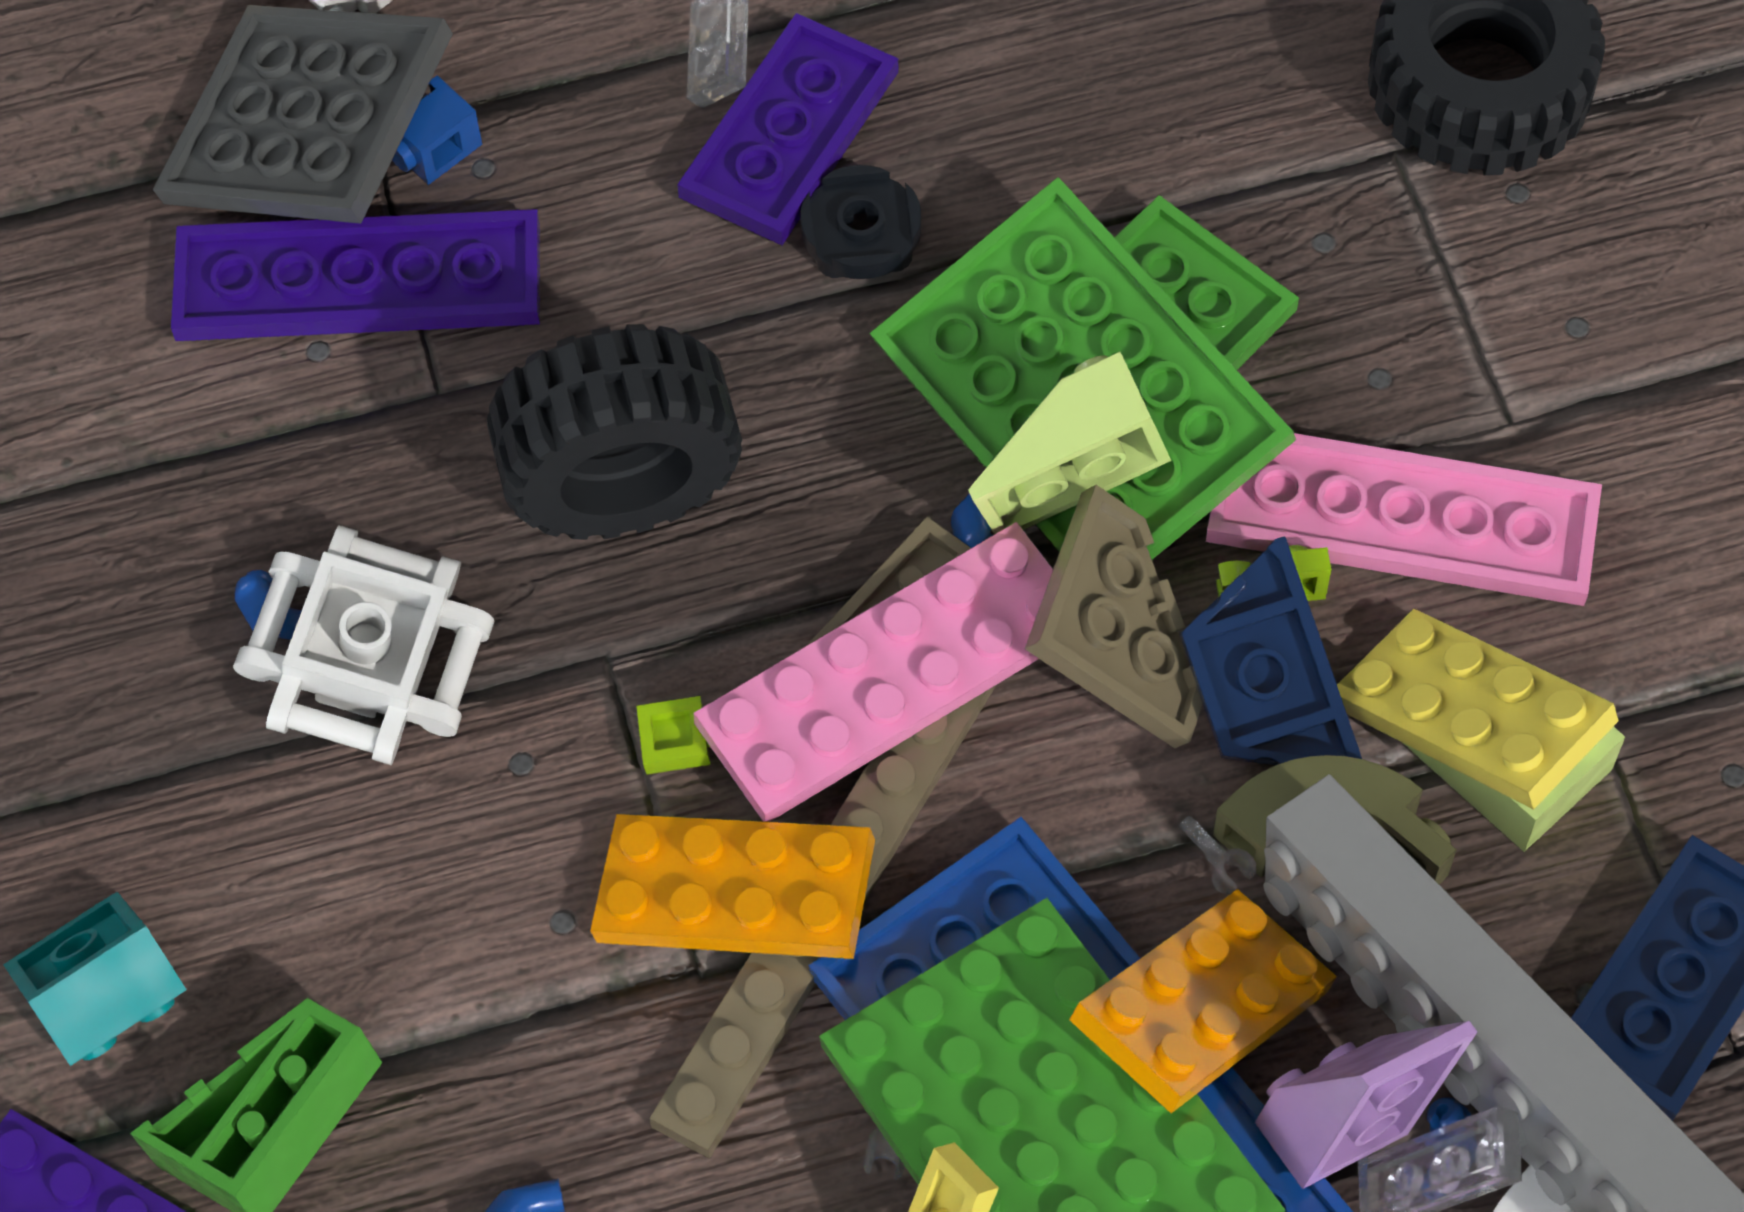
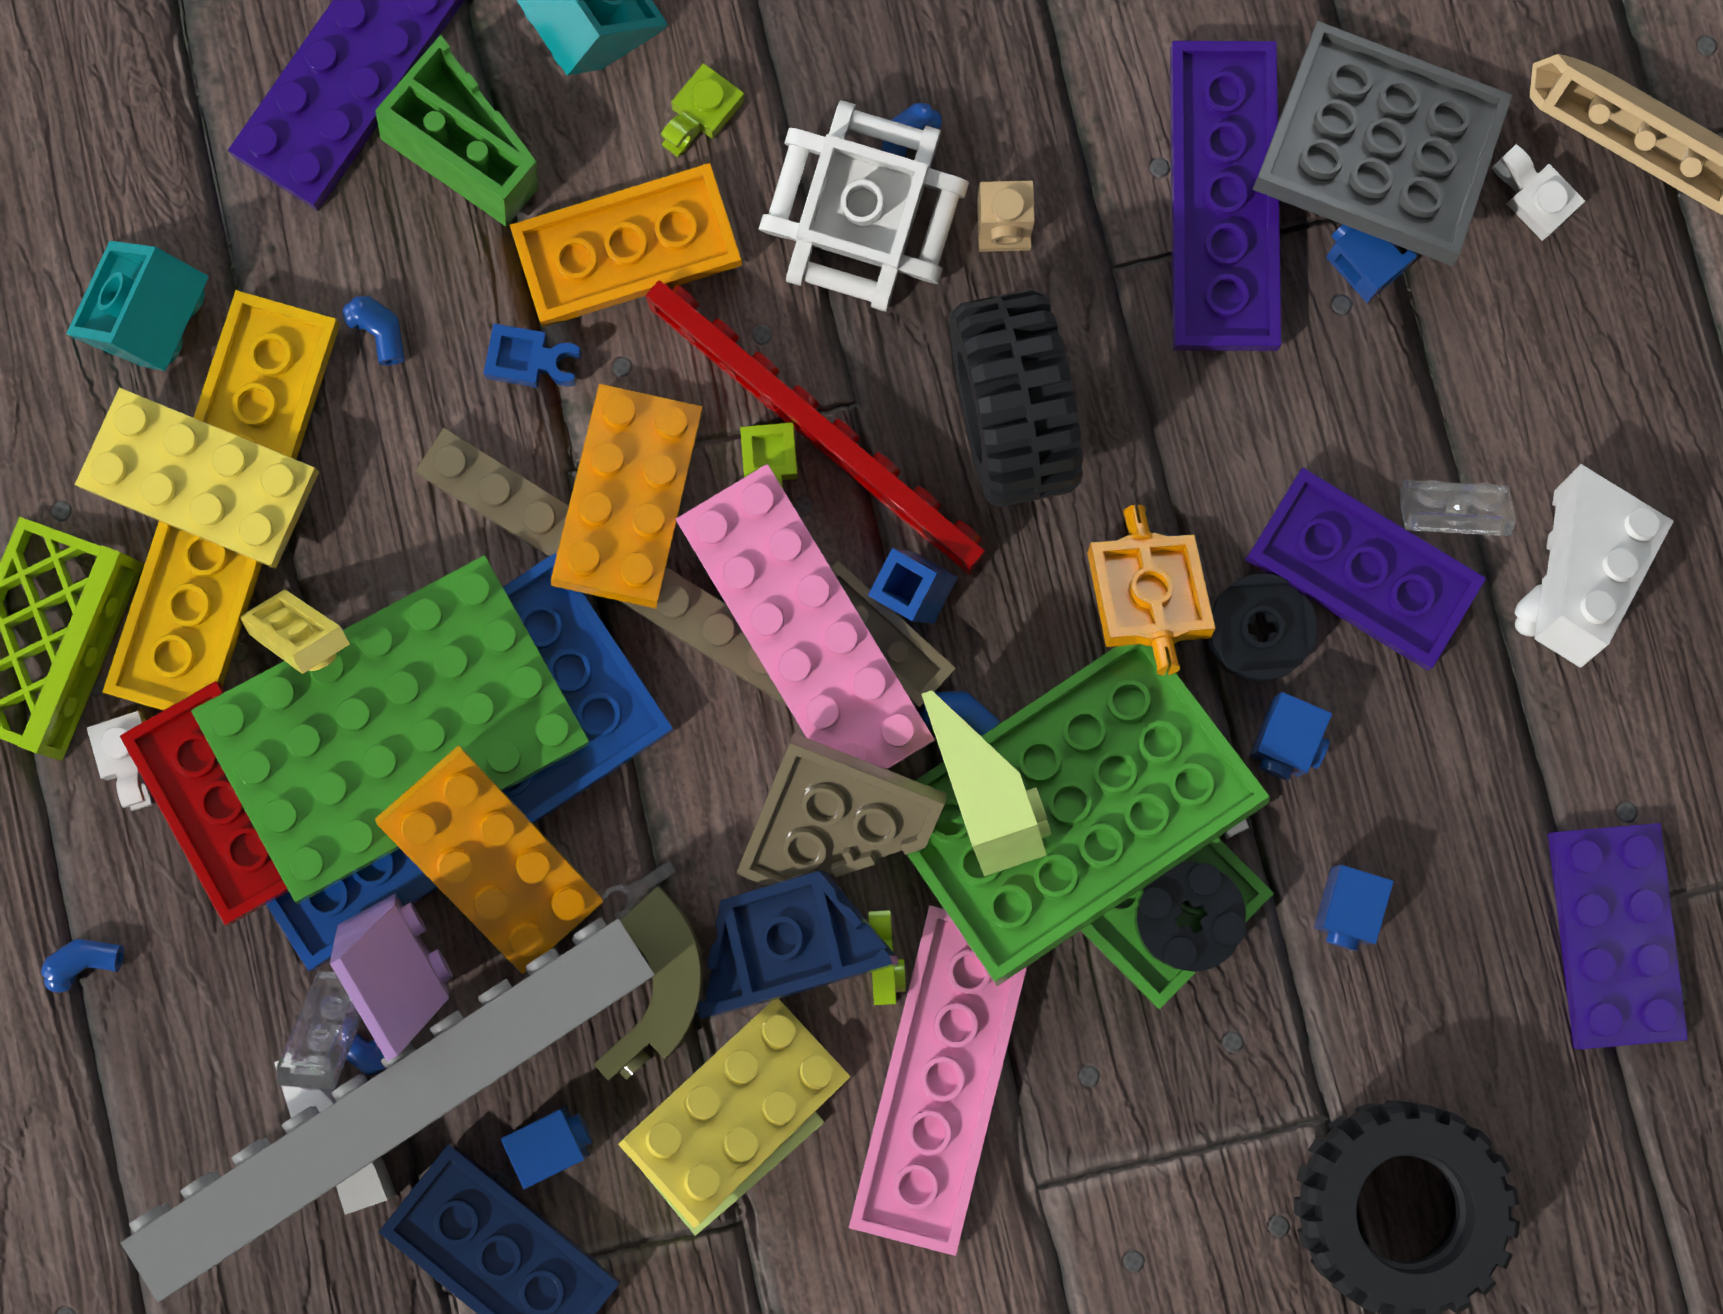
camera: 90 degrees right, 20 degrees up
(231, 838) = (703, 106): none -> lime plate
(379, 491) = (1005, 216): none -> tan brick
(409, 916) = (624, 244): none -> light orange plate
(556, 1029) = (522, 356): none -> blue plate
(653, 668) = (833, 439): none -> red plate
(825, 322) = (1150, 590): none -> light orange plate
(834, 558) = (912, 586): none -> blue brick
(981, 186) = (1291, 737): none -> blue brick
(1165, 124) = (1352, 907): none -> blue brick
(1202, 236) = (1220, 928): none -> black plate
(1543, 927) = (547, 1146): none -> blue brick

